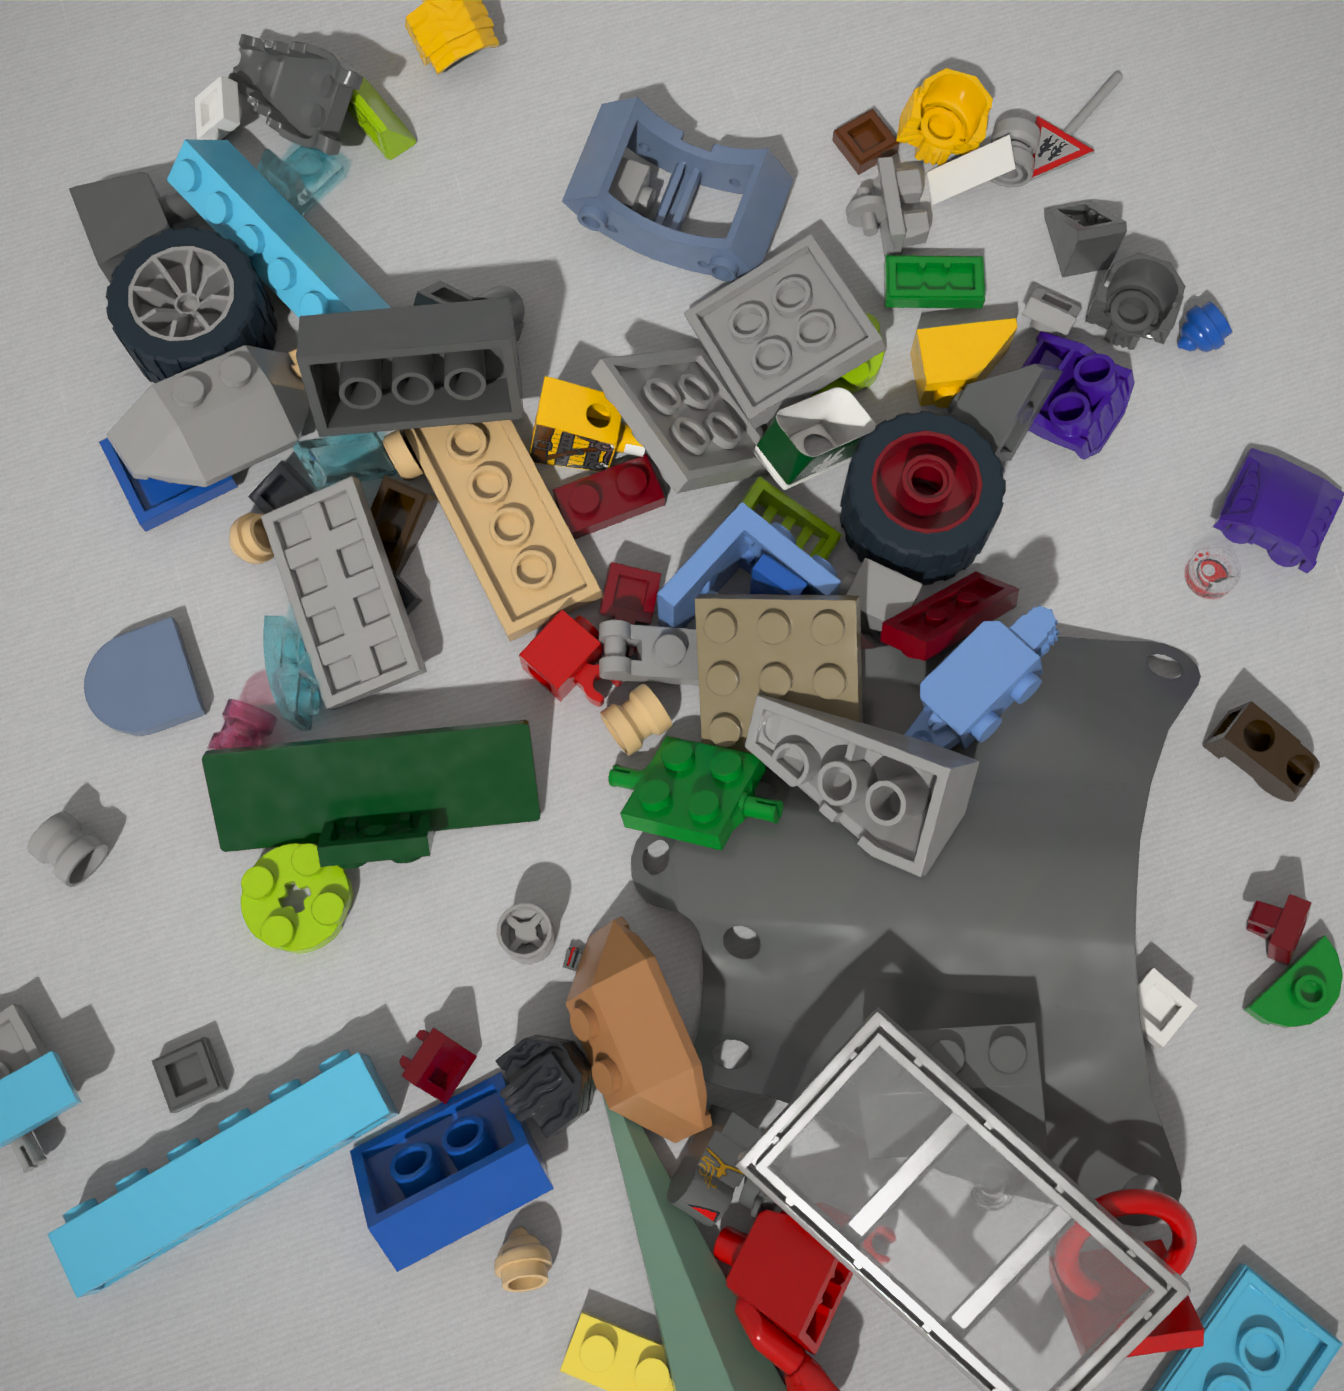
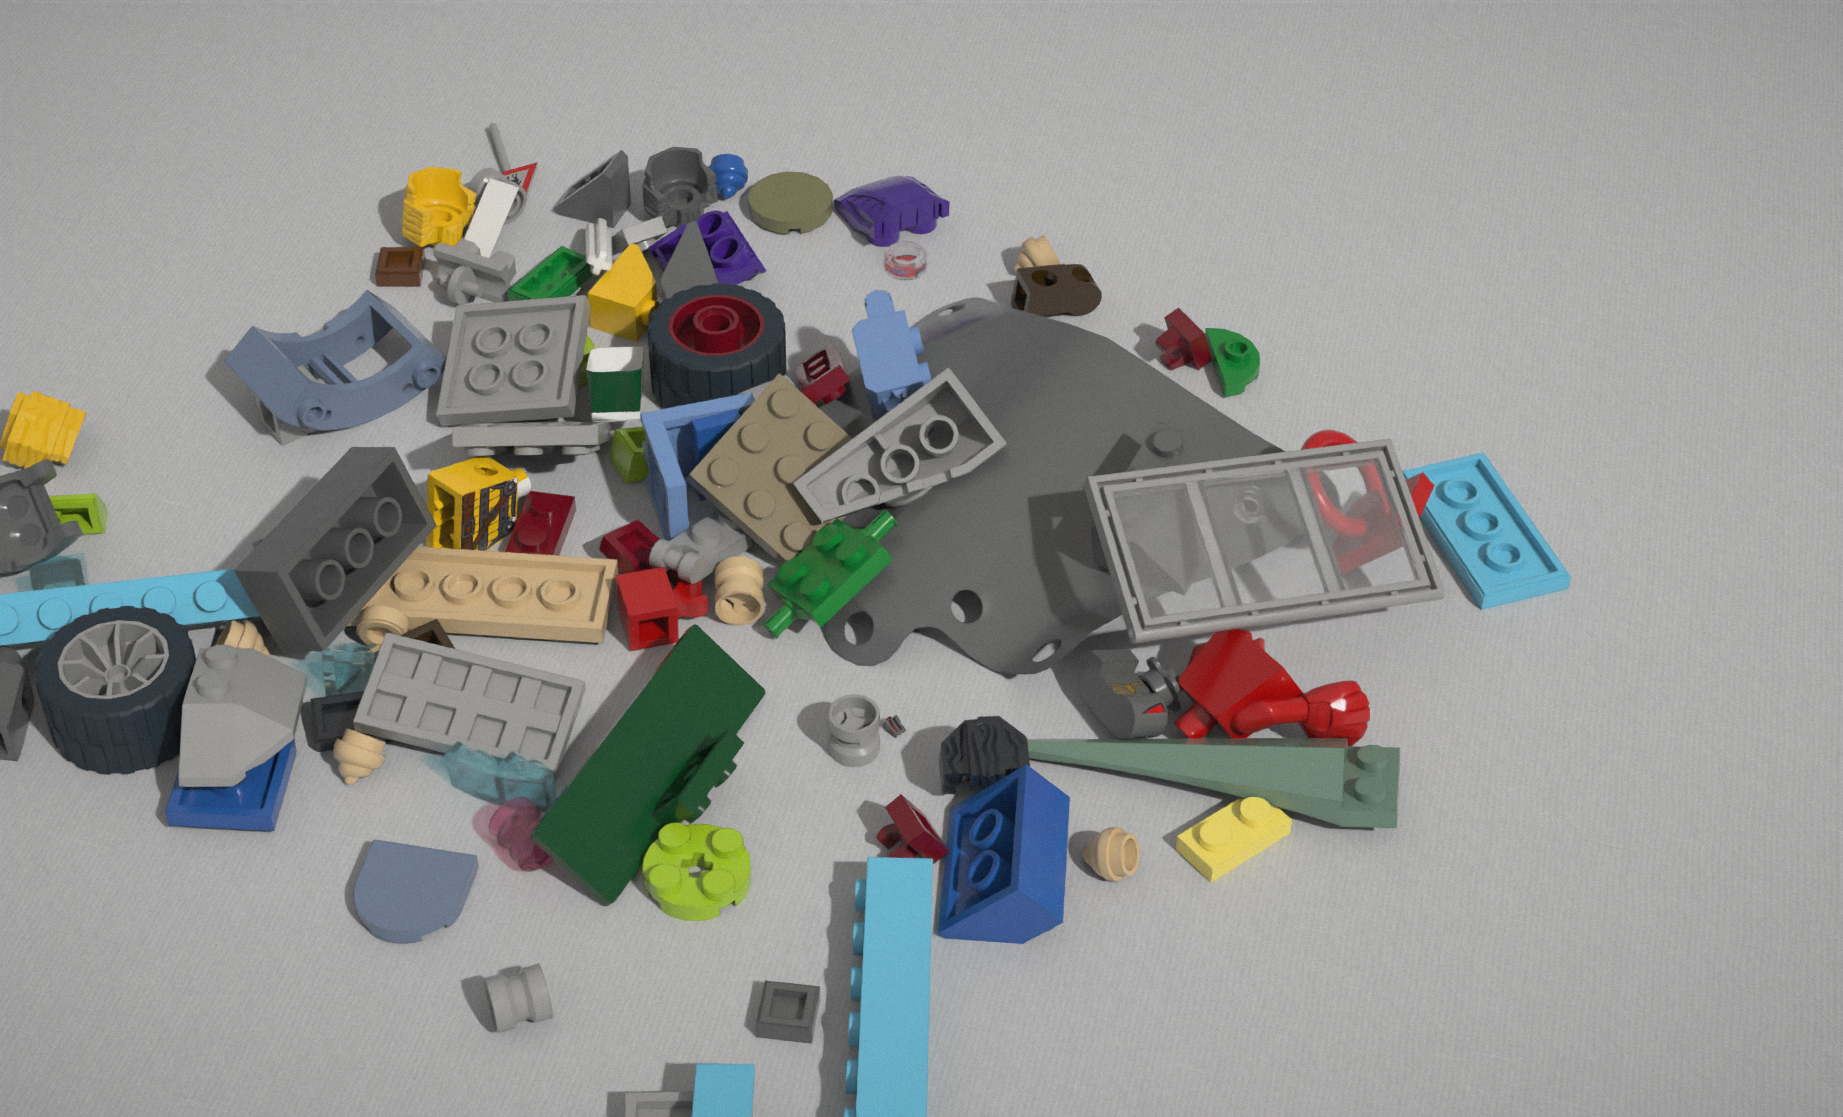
camera: 60 degrees left, 30 degrees down
(636, 1036) = (990, 670): medium nougat wedge -> none
(996, 291) = (598, 246): none -> white axle
(1216, 410) = (790, 202): none -> olive tile
(1307, 700) = (1036, 253): none -> tan plate

